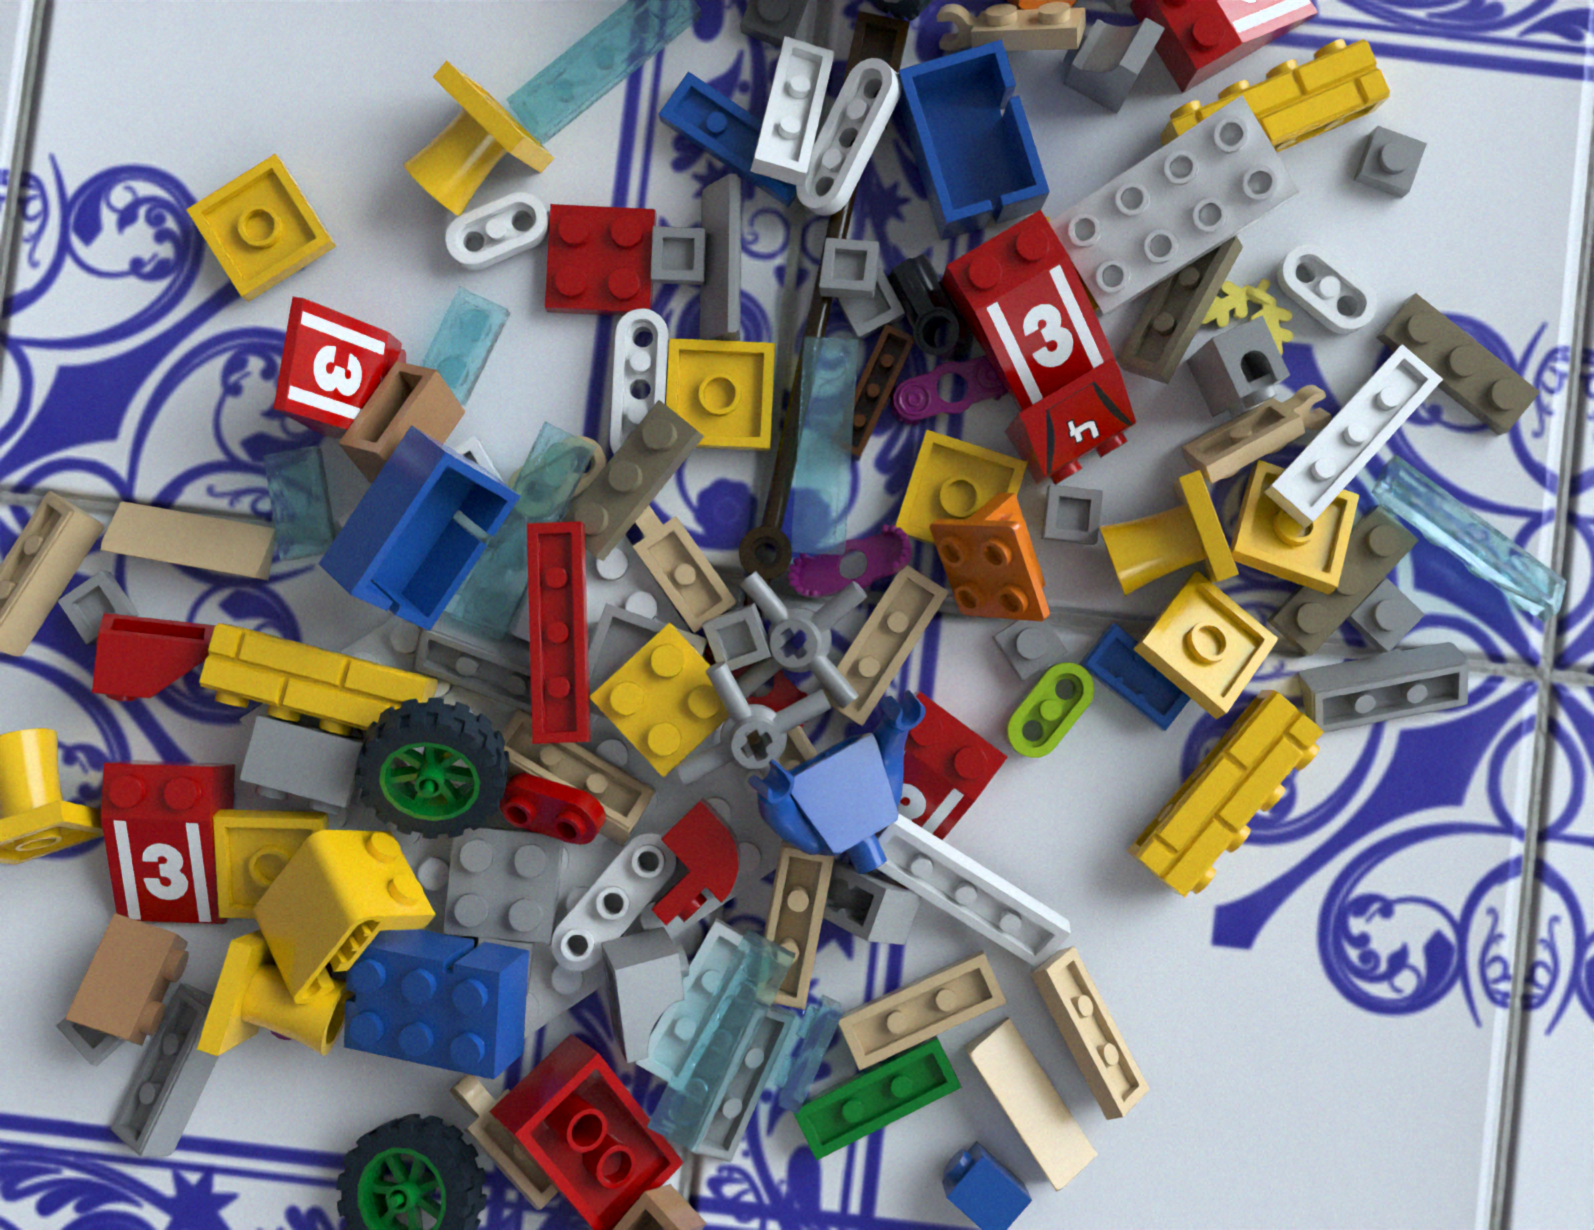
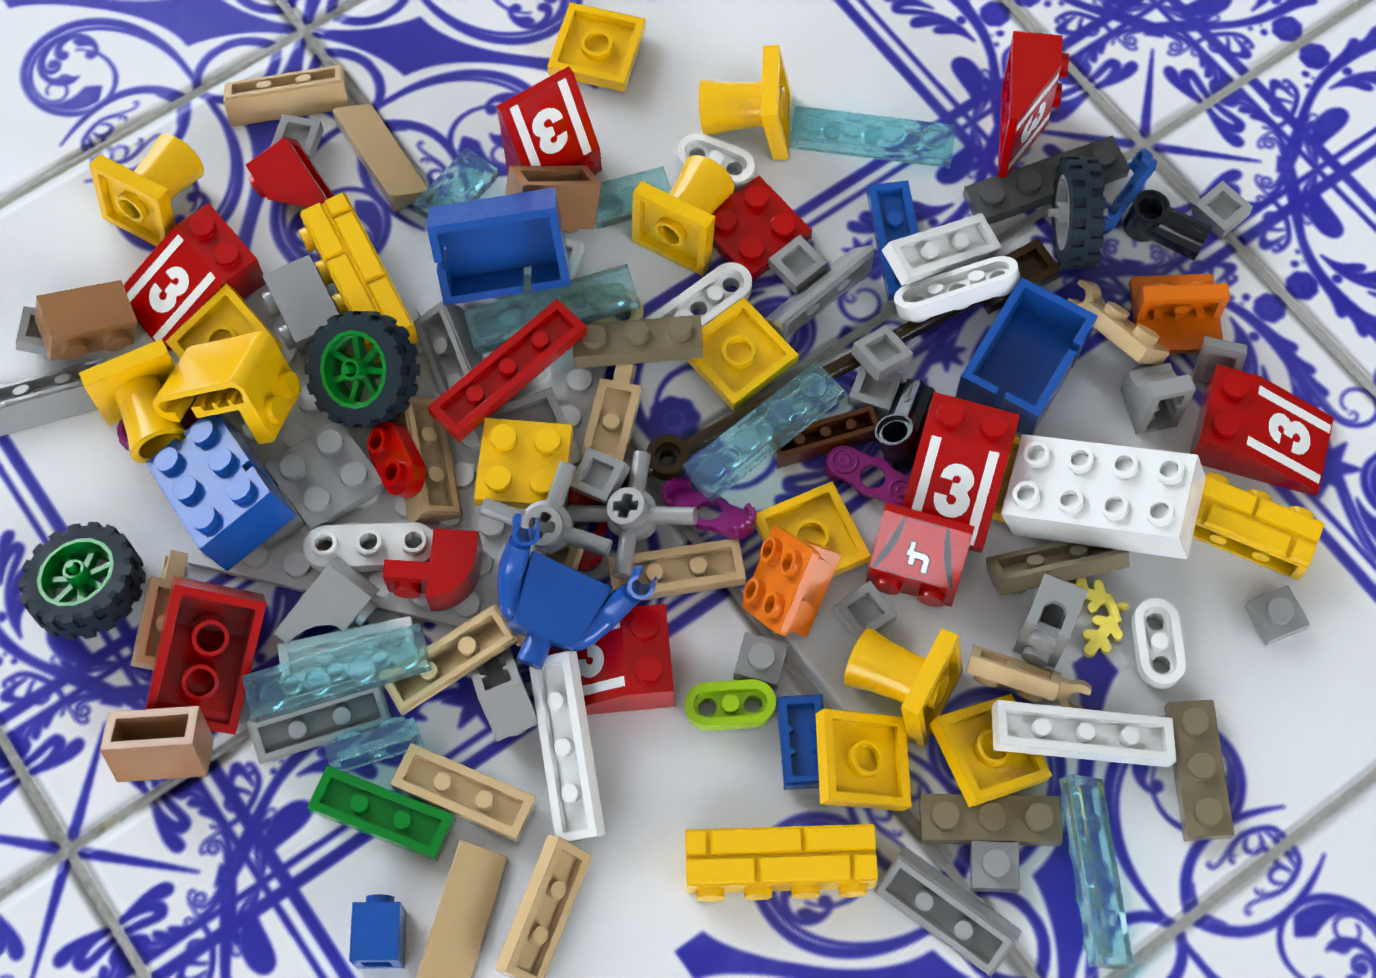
camera: 45 degrees right, 20 degrees down
(537, 328) = (682, 221): none -> yellow plant

